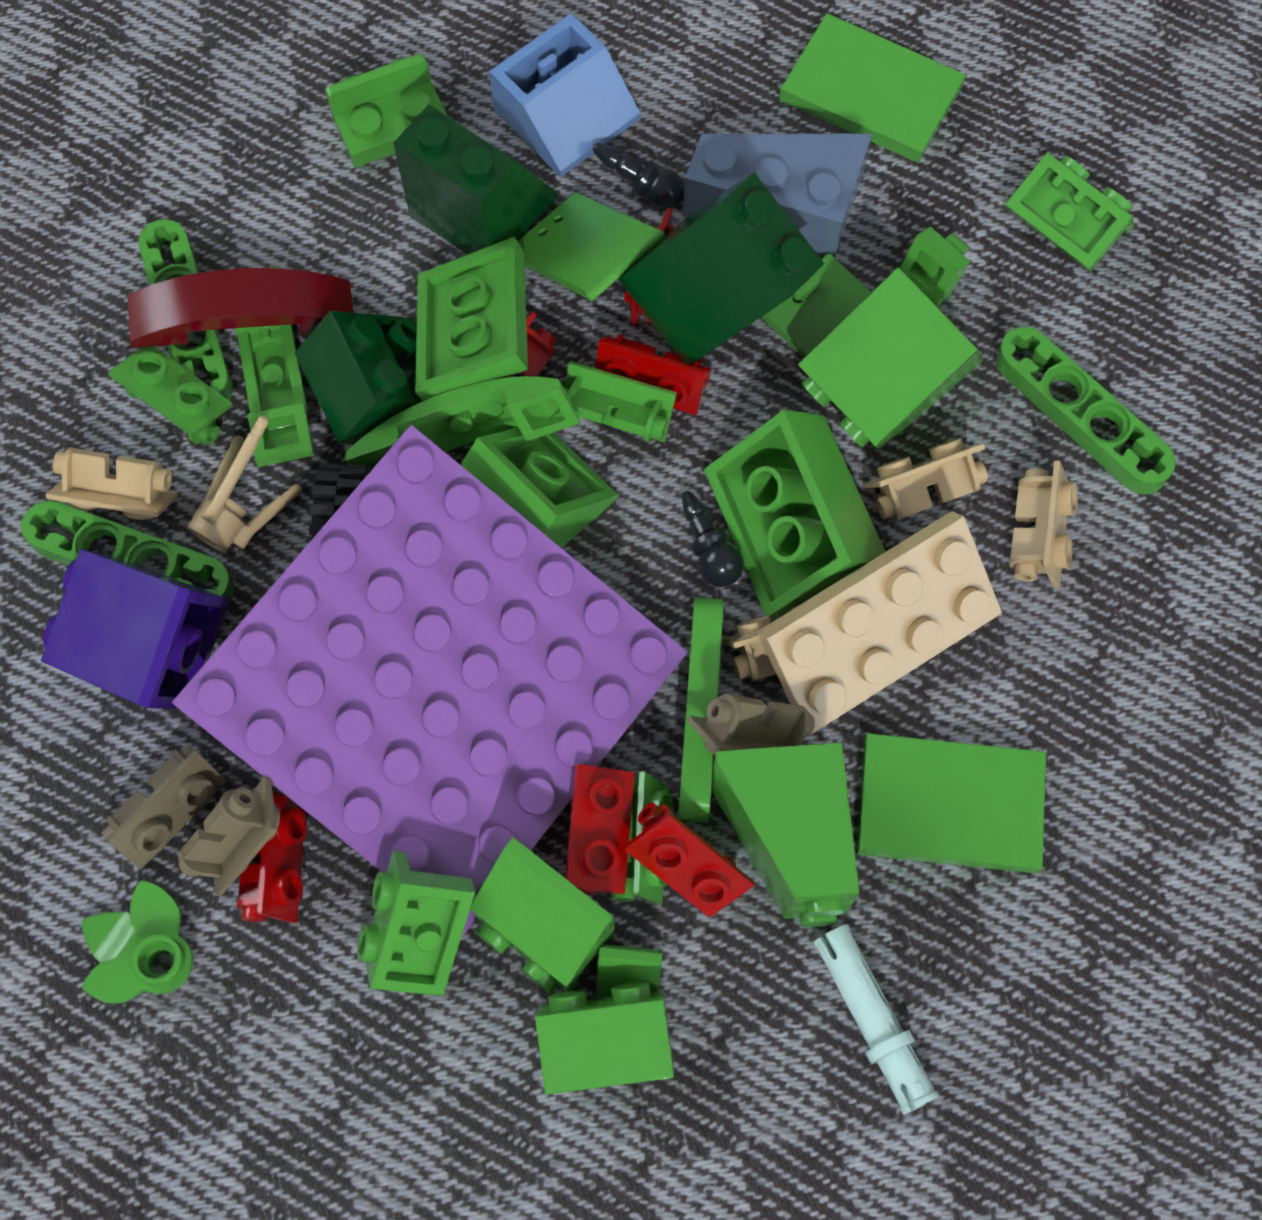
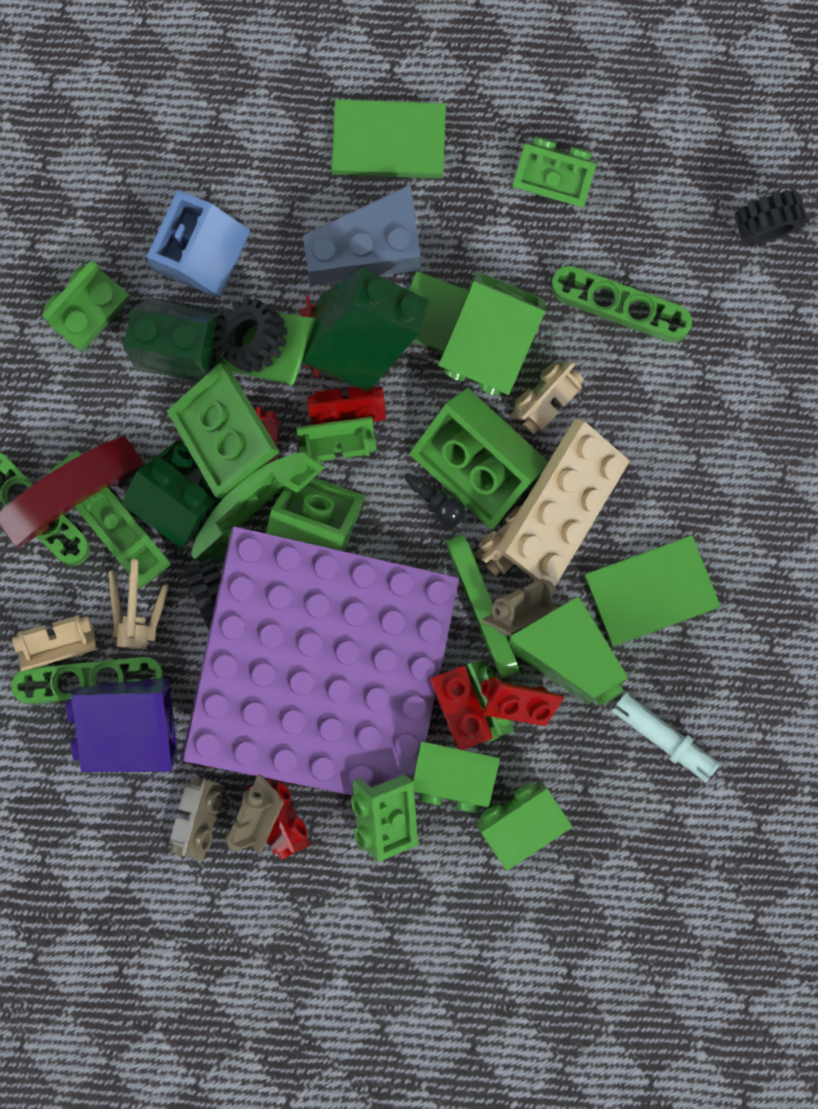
camera: 25 degrees left, 10 degrees up
(132, 942) = (223, 905): bright green plate -> none
(172, 393) = (58, 565): bright green hinge -> none
(570, 221) = (263, 344): none -> black tyre
(627, 965) = (513, 778): bright green slope -> none
(660, 187) = (287, 275): black bar -> none
(936, 264) = (488, 250): bright green tile -> none
(1046, 546) = (627, 379): tan hinge -> none

